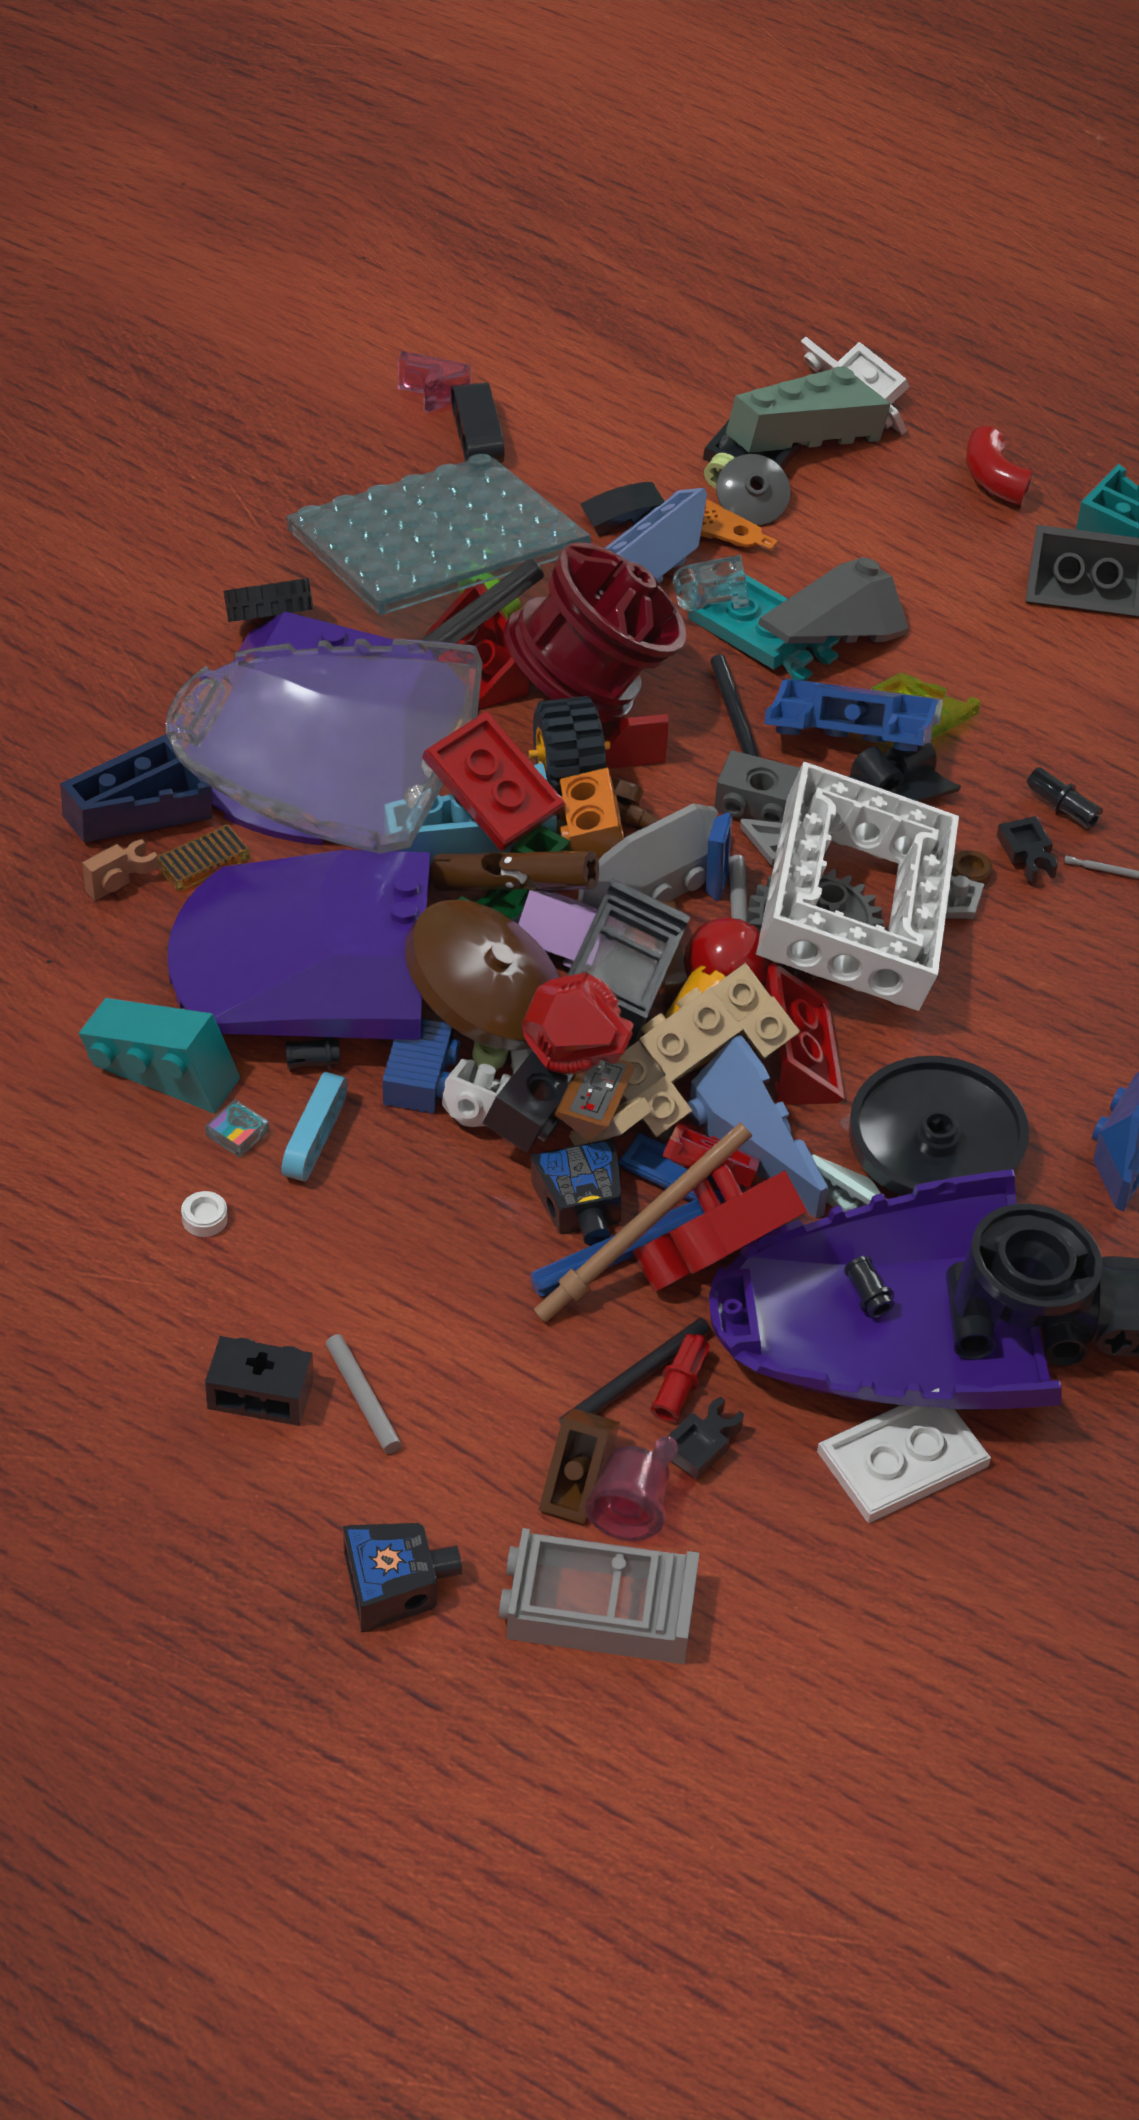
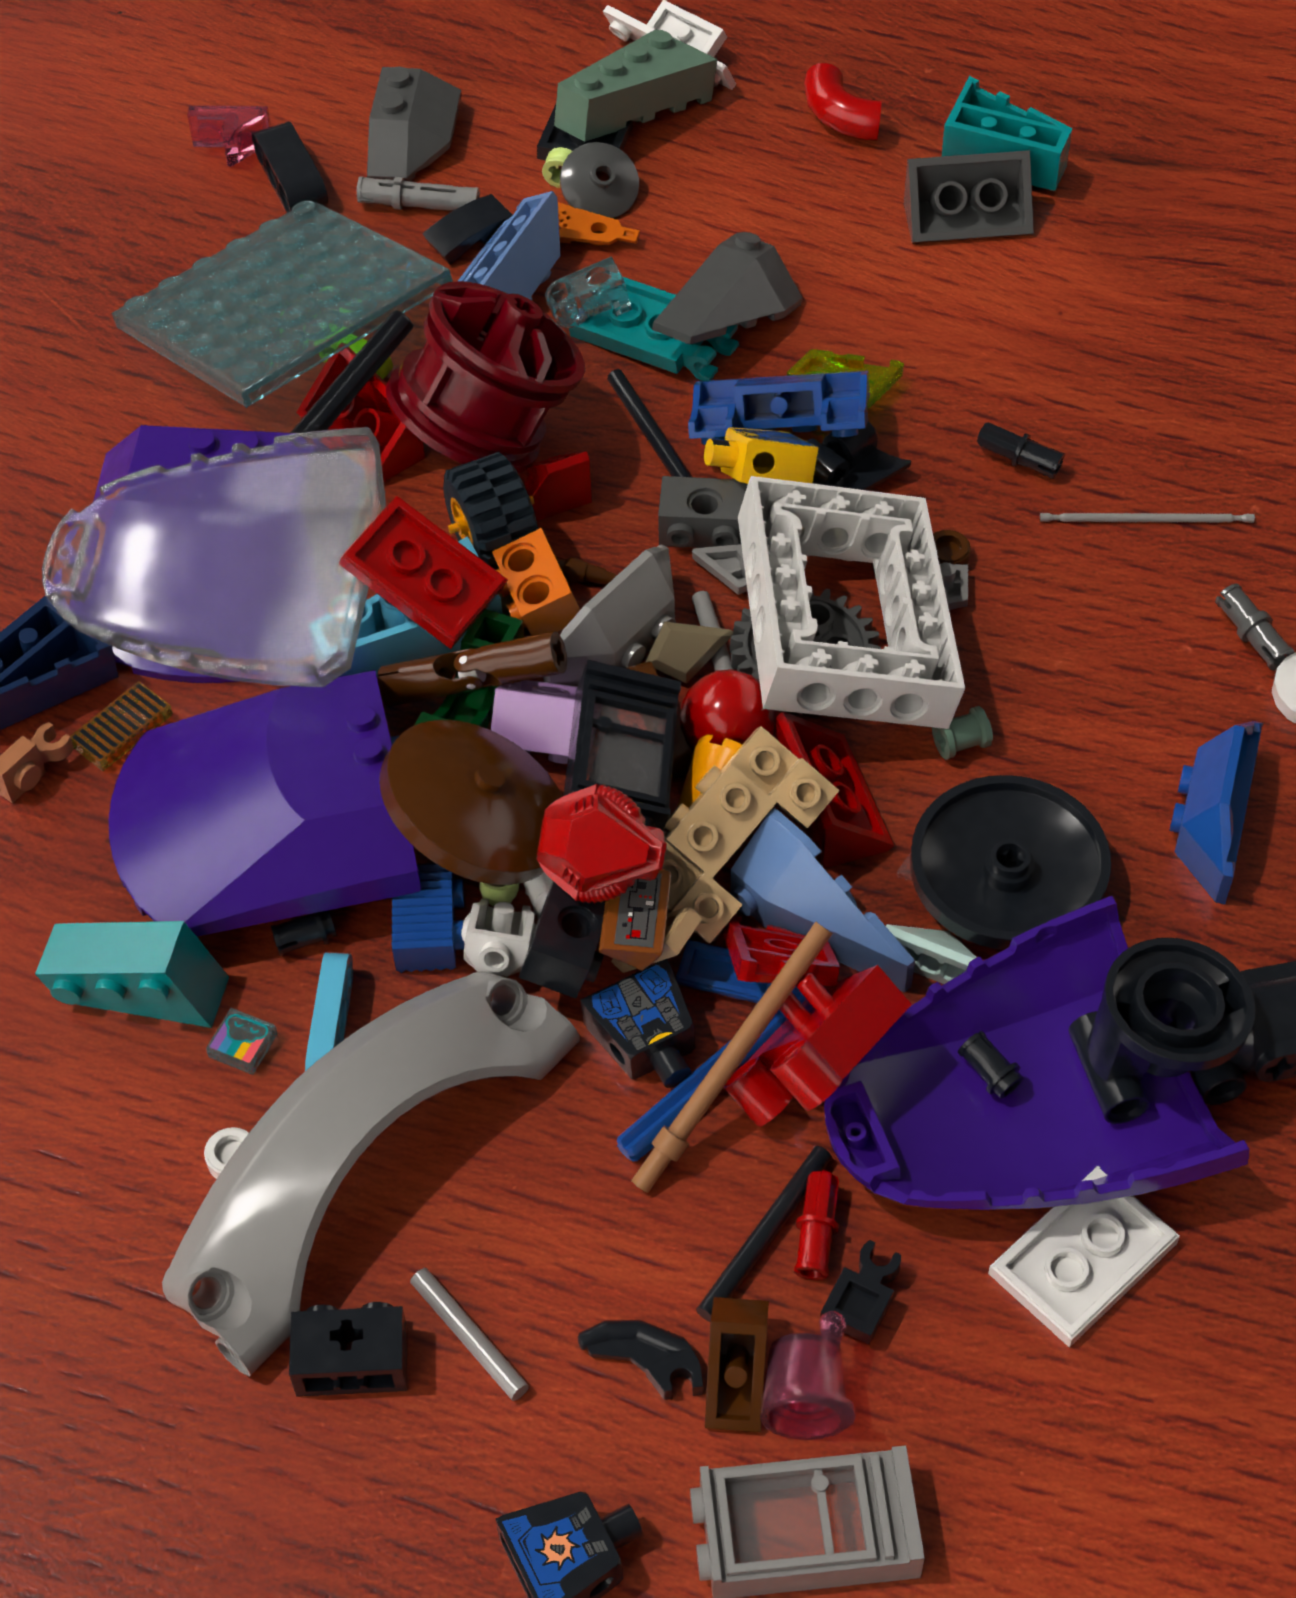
camera: 10 degrees left, 5 degrees up
(226, 1244) = (272, 1194): none -> light grey panel
(268, 600) = (118, 414): black tyre -> none
(513, 1441) = (649, 1347): none -> black piece
(572, 465) = (412, 194): none -> light grey pin
(595, 405) = (410, 122): none -> dark grey wedge
(628, 791) = (565, 546): reddish brown tile -> none
(709, 897) = (685, 648): none -> dark tan piece
(718, 856) = (683, 589): blue tile -> none
(832, 752) = (762, 455): none -> yellow torso
(934, 1020) = (964, 733): none -> sand green bush
(1028, 843) = (999, 508): black plate -> none

